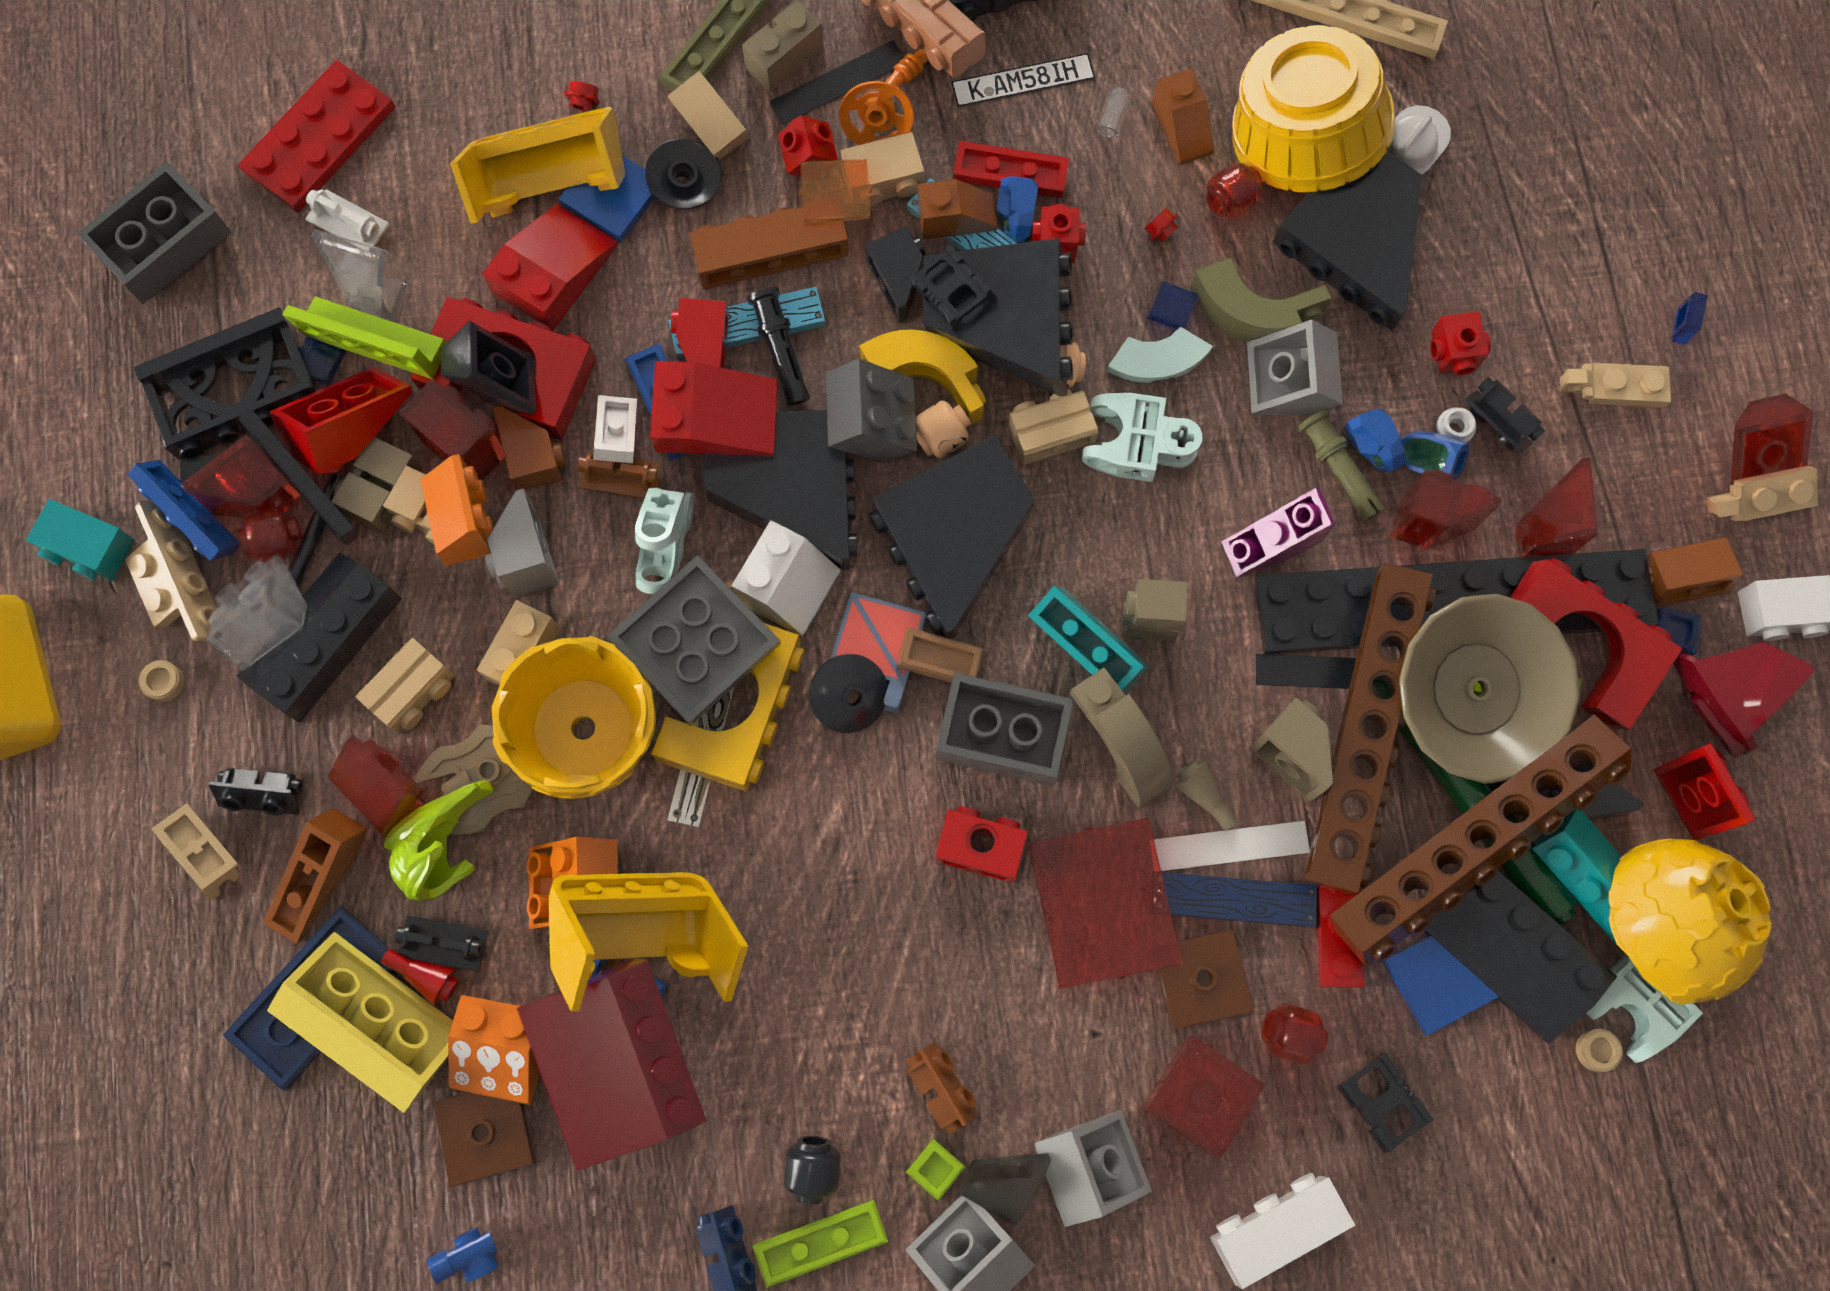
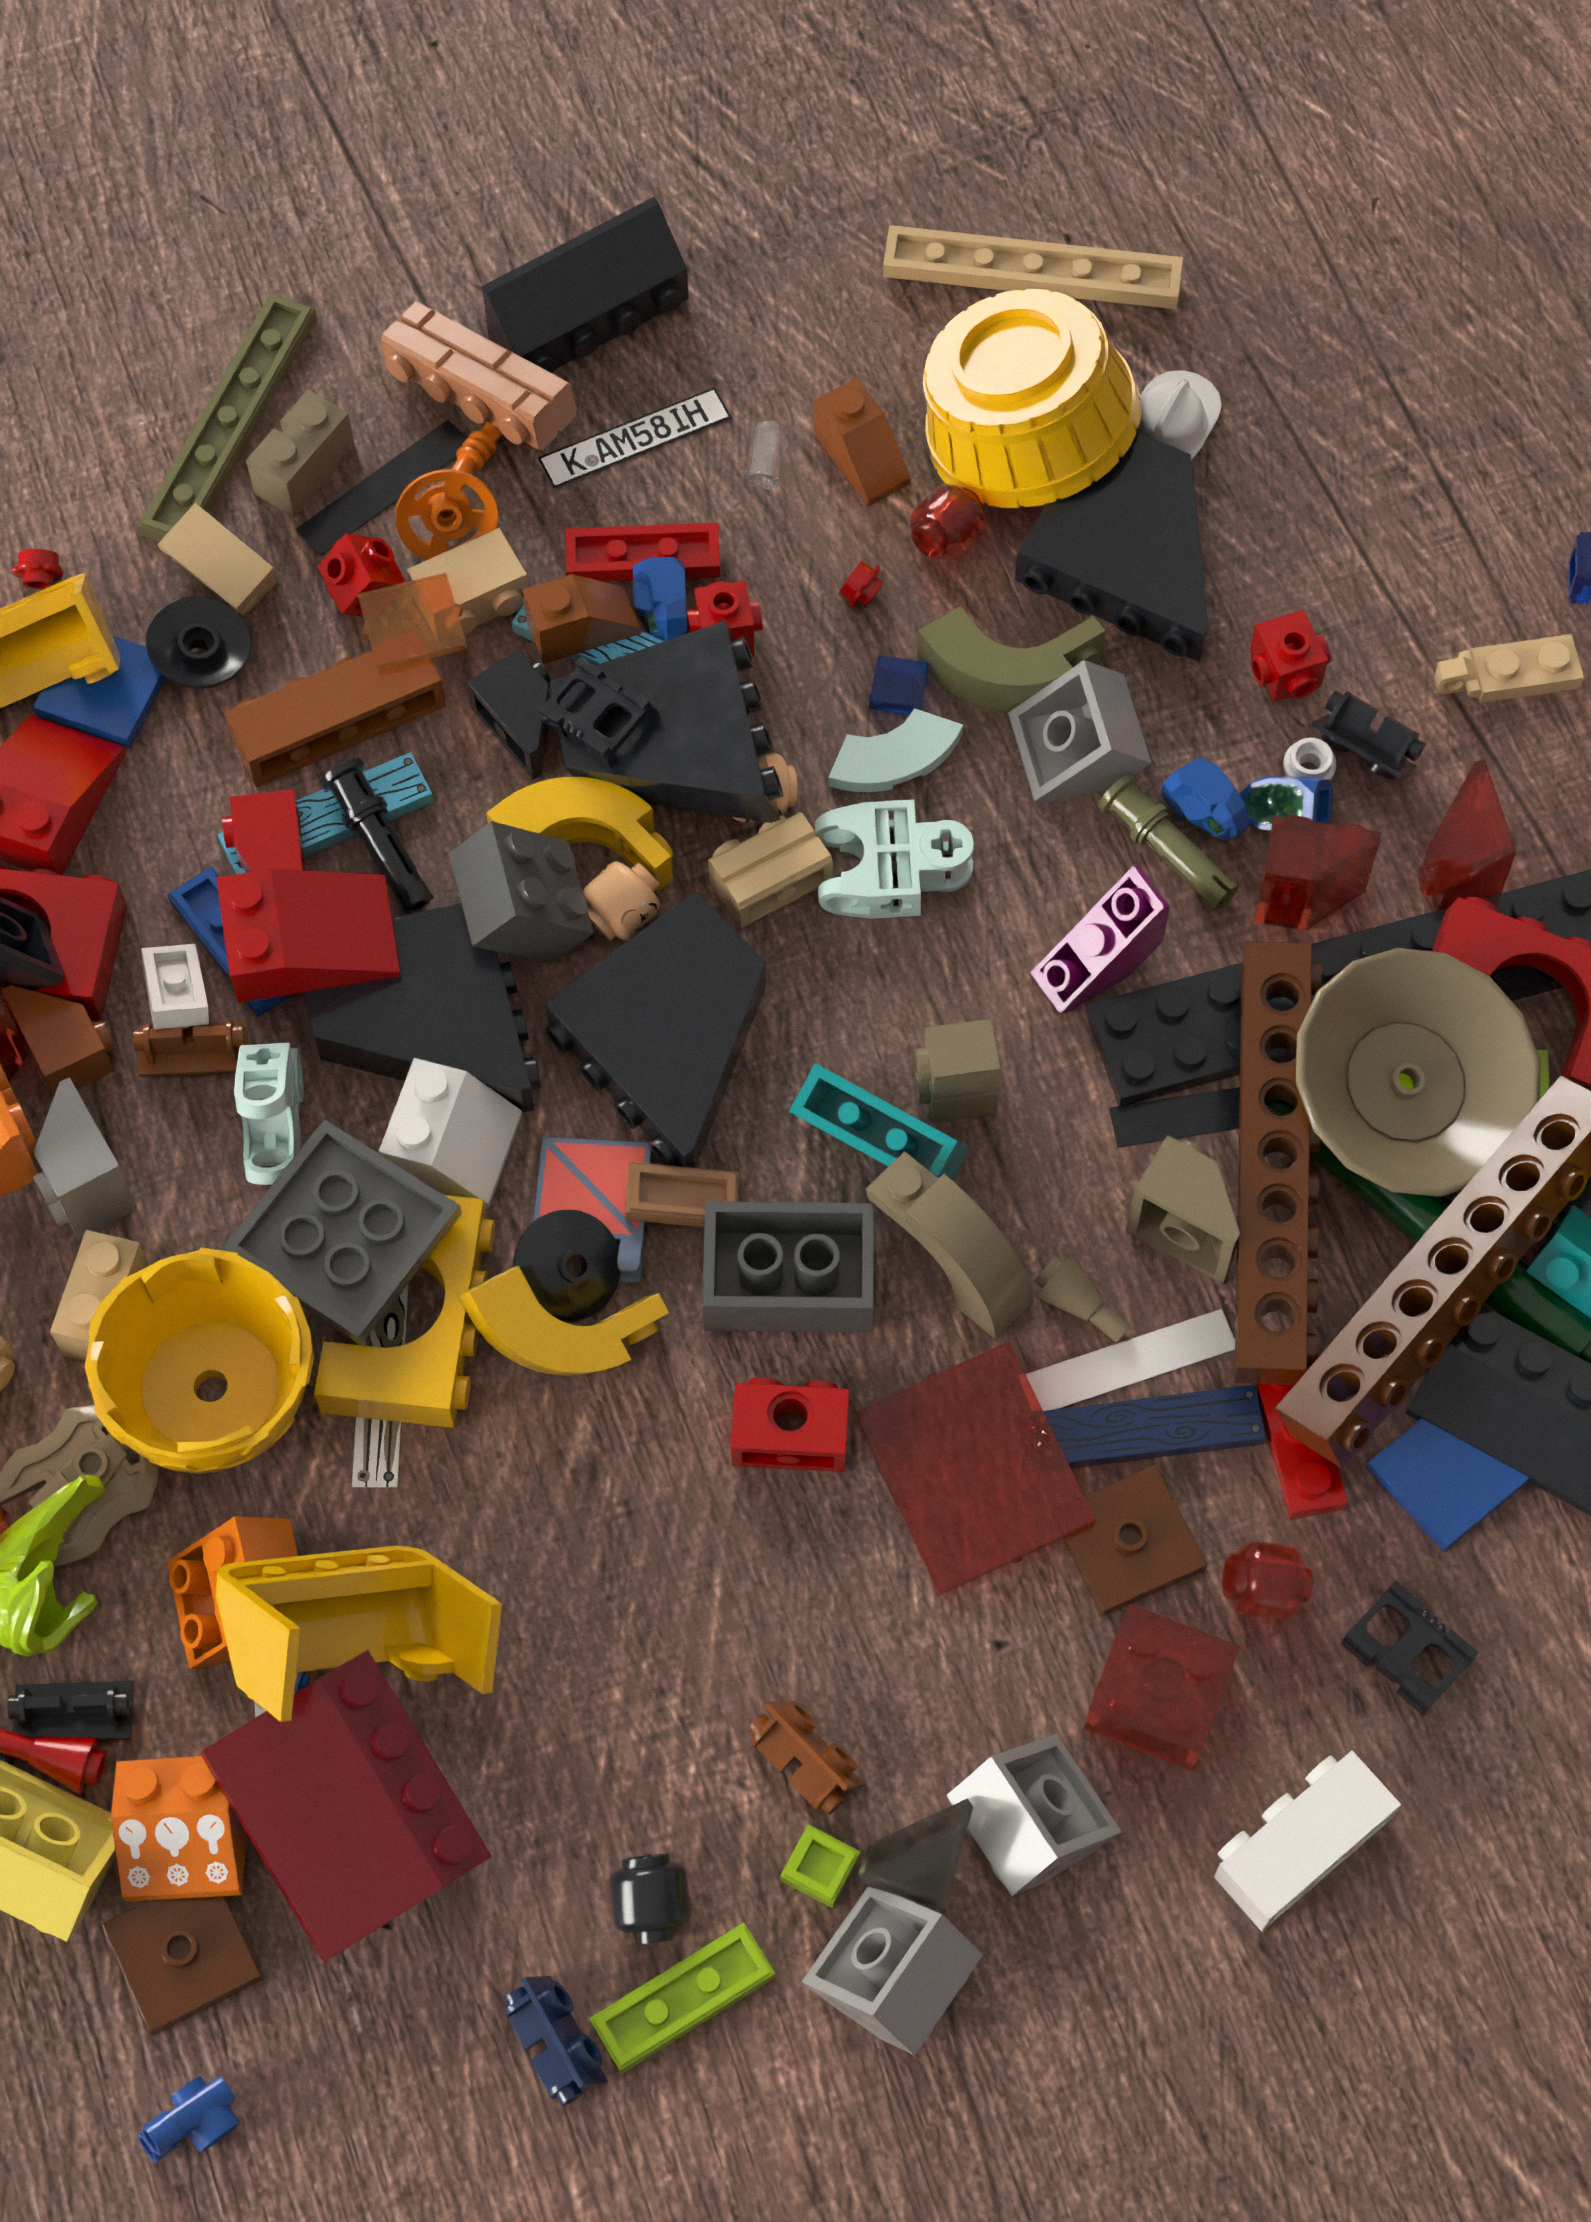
camera: 10 degrees left, 10 degrees down
(802, 733) = (530, 1336): none -> yellow arch

